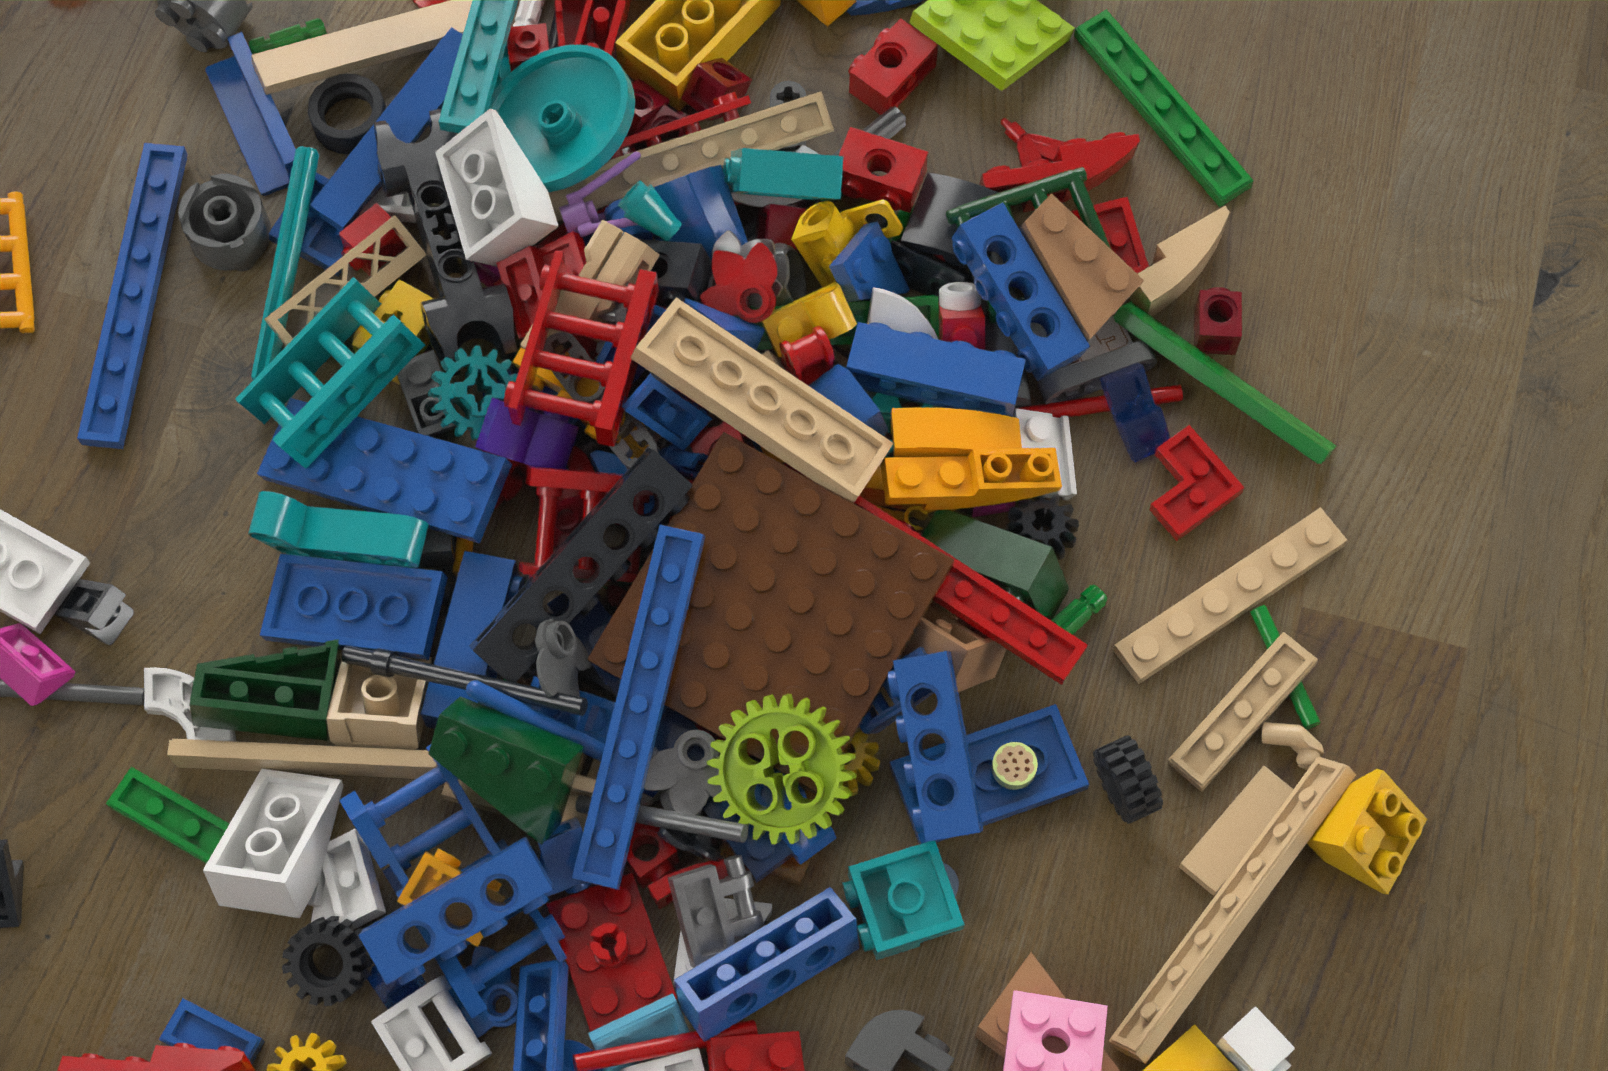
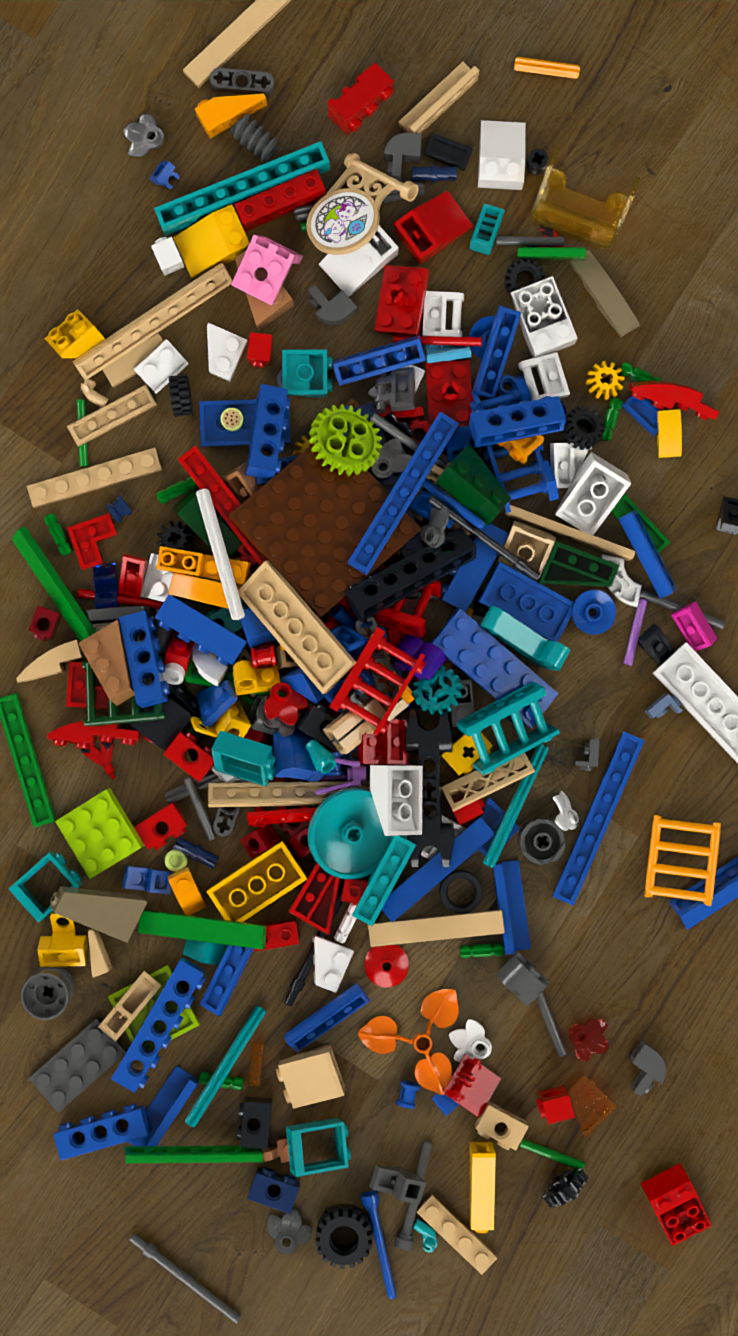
camera: 165 degrees left, 20 degrees up
(60, 507) = (659, 708): none -> sand blue bracket
(138, 624) = (635, 632): none -> medium lavender bar
(143, 762) = (647, 554): none -> blue brick
(151, 1007) = (669, 433): none -> yellow slope
(170, 383) = (591, 751): none -> dark grey bracket
(191, 280) = (567, 817): none -> white plate
(214, 616) = (604, 612): none -> blue dish
(277, 1006) = (611, 418): none -> green axle
(819, 47) = (196, 852): none -> dark blue pin
(835, 109) = (200, 809): none -> dark grey bar
(850, 31) = (176, 860): none -> yellowish green tile
(946, 493) = (220, 554): none -> white axle
(1008, 919) = (260, 350): none -> red brick
(1078, 900) = (224, 351): none -> white wing
(1095, 443) = (132, 575): none -> red slope
(1163, 549) = (119, 509): none -> dark blue wheel
(1186, 830) = (159, 365): none -> white plate
(1256, 477) = (58, 534): none -> green axle

